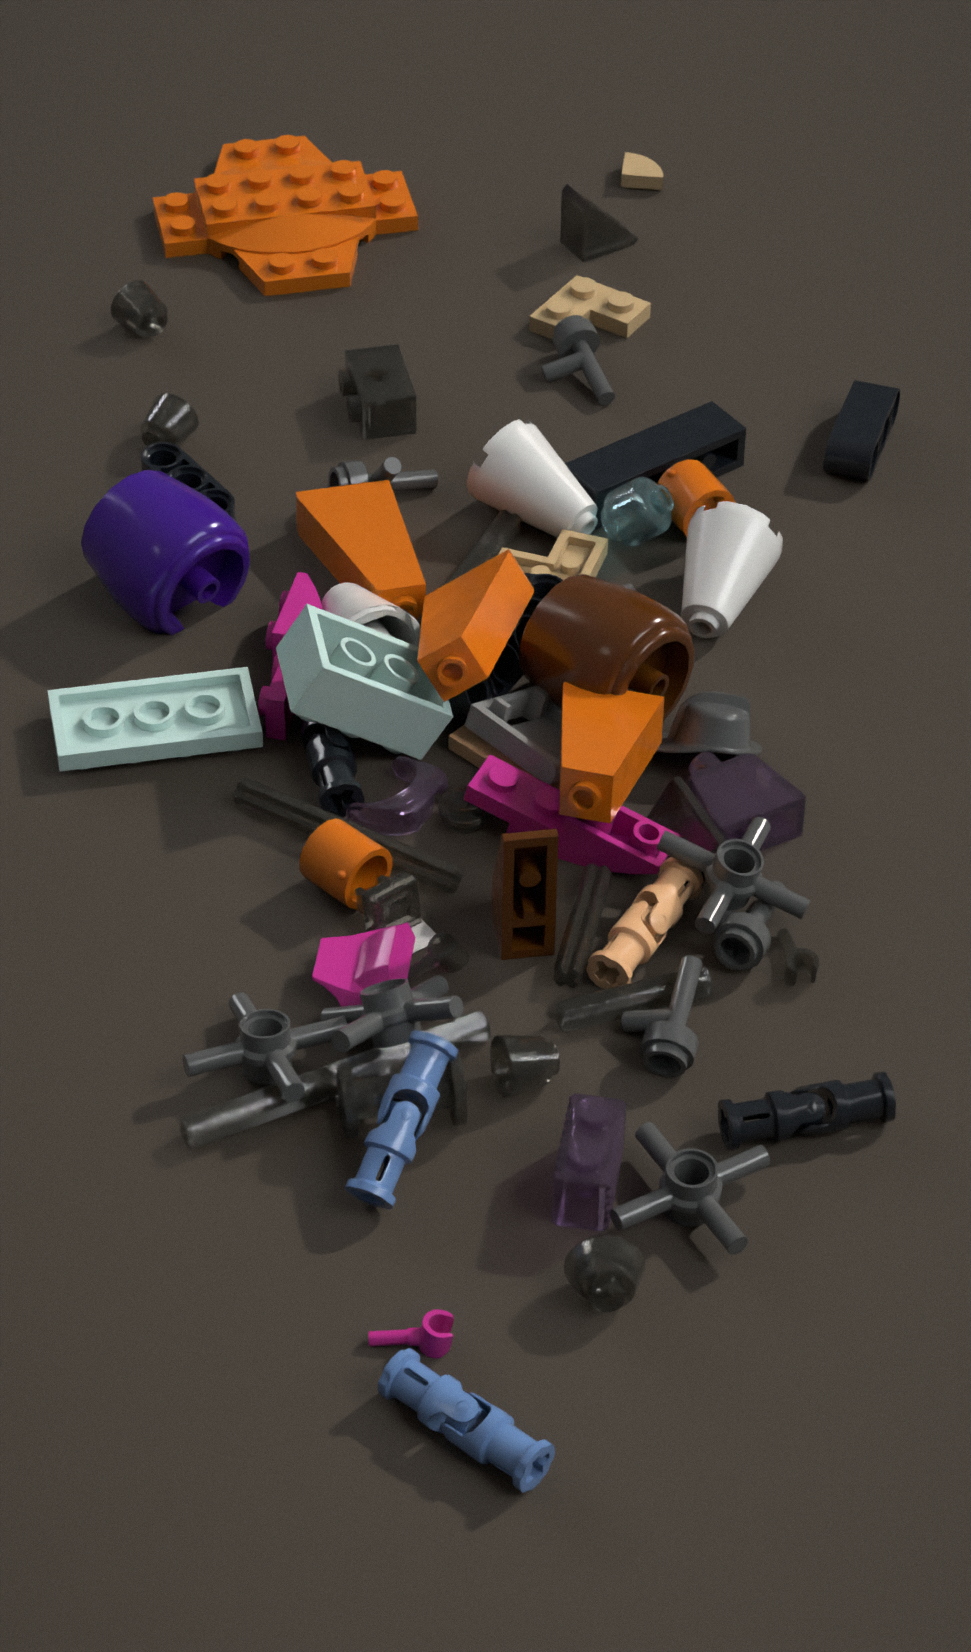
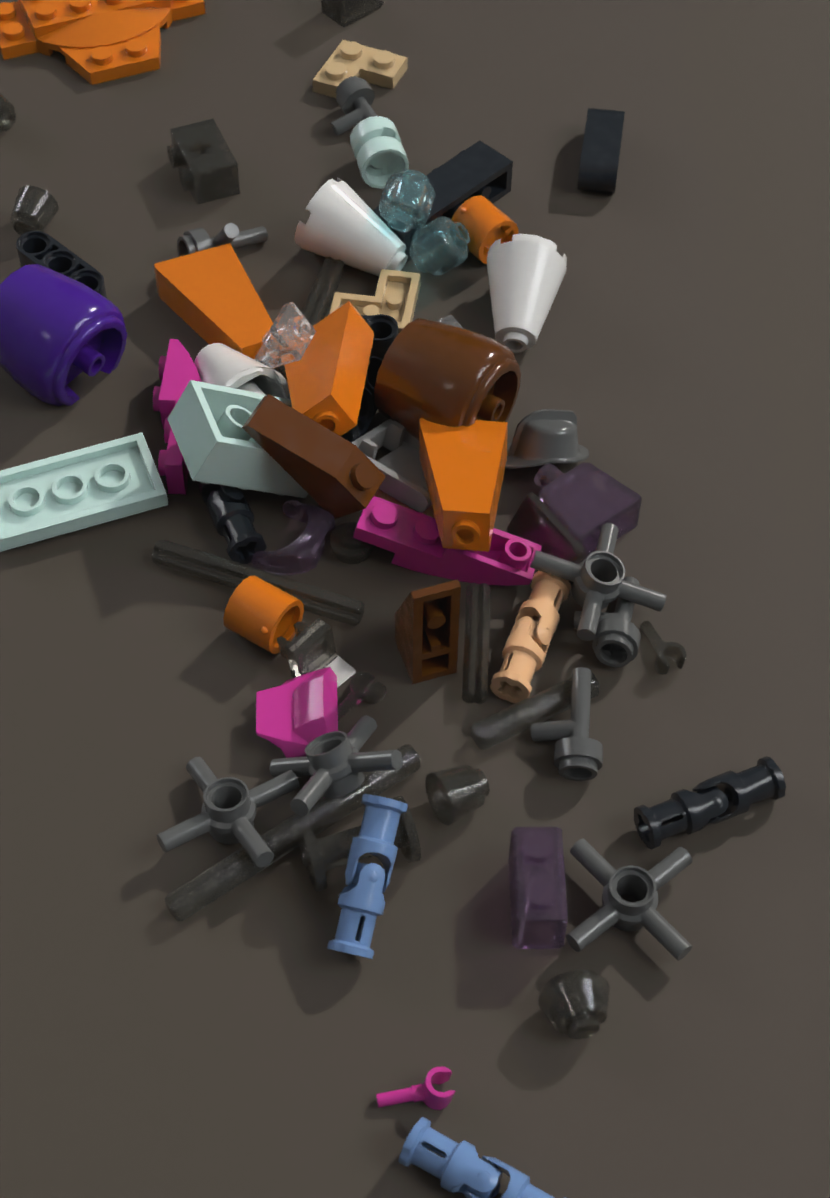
camera: 10 degrees left, 10 degrees up
(431, 580) = (286, 338): none -> clear bracket
(434, 705) = (315, 457): none -> reddish brown slope
(589, 403) = (378, 150): none -> light aqua wheel
(604, 454) = (407, 200): none -> clear light blue head

